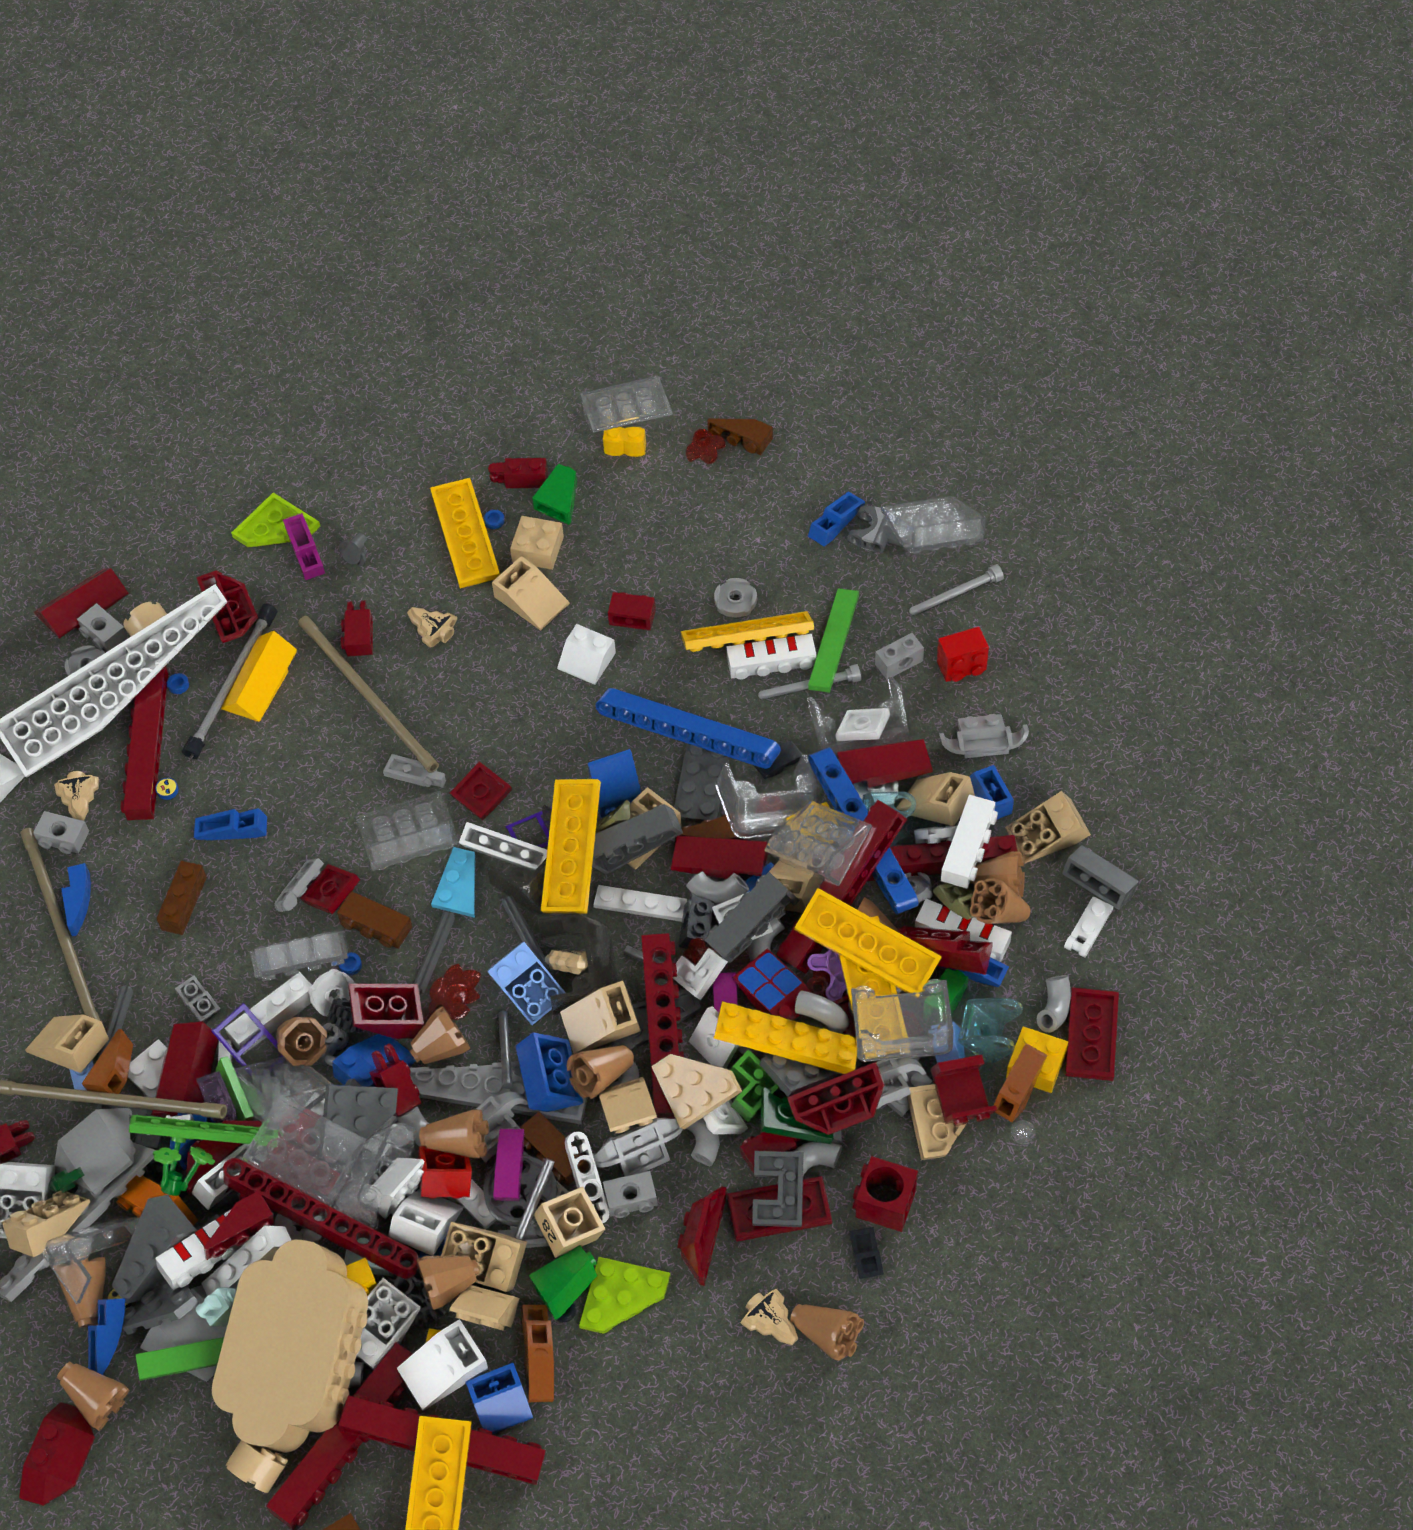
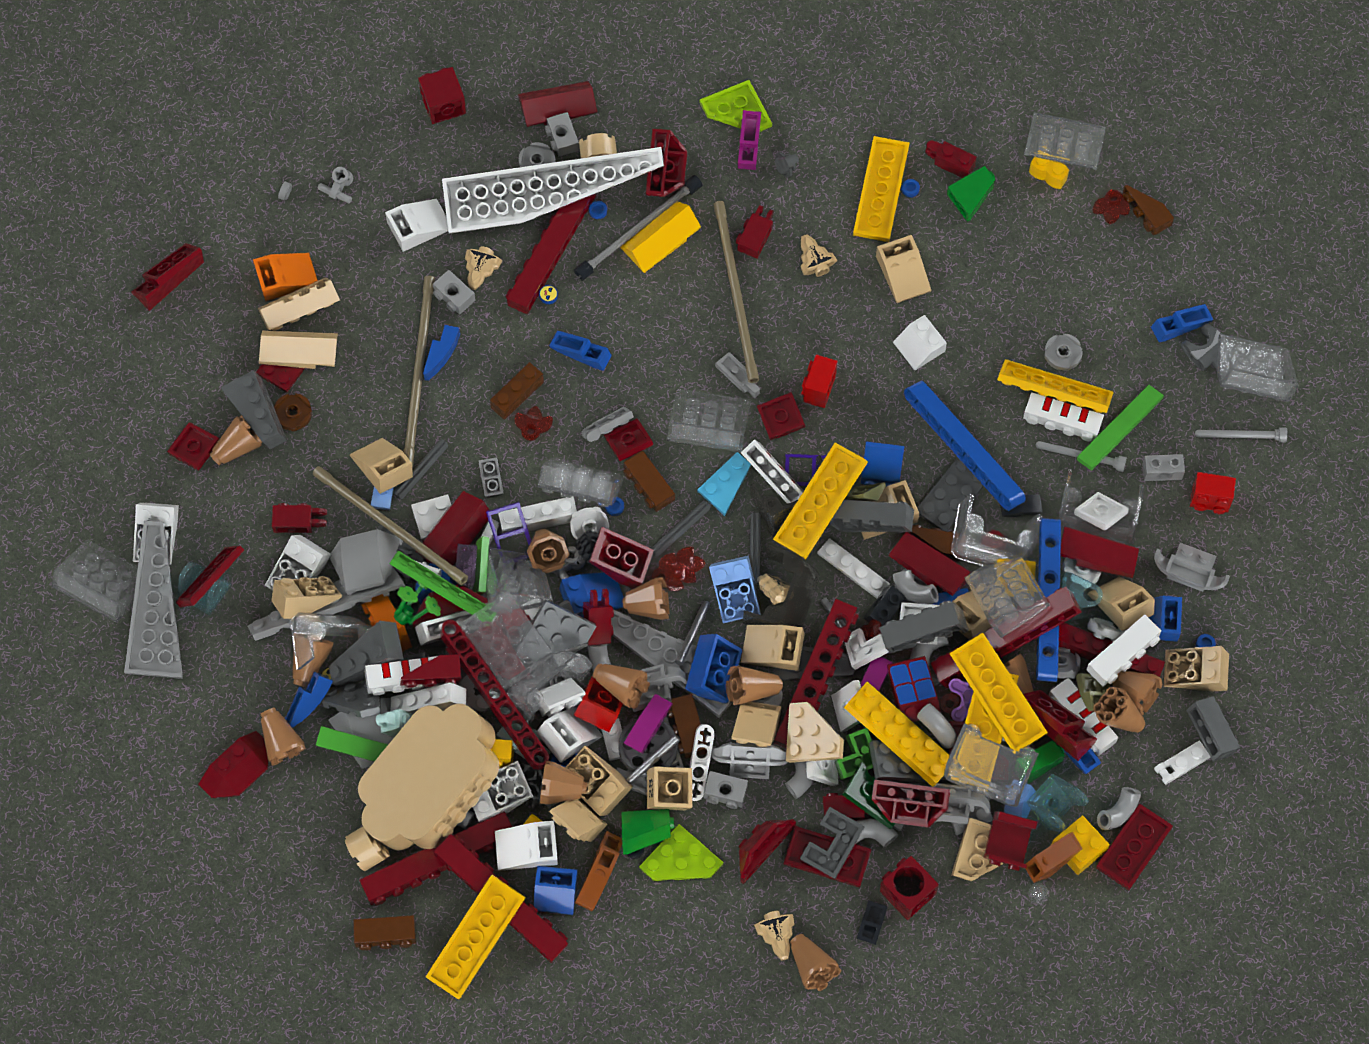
camera: 25 degrees right, 10 degrees up
(64, 1181) = (331, 572): dark green piece -> none
(112, 1066) = (403, 501): dark orange slope -> none
(216, 920) = (534, 421): none -> clear red plate
(502, 736) = (819, 380): none -> red brick
(537, 541) = (932, 226): tan brick -> none
(631, 611) = (975, 323): dark red brick -> none
(1038, 798) = (1205, 641): none -> blue tile

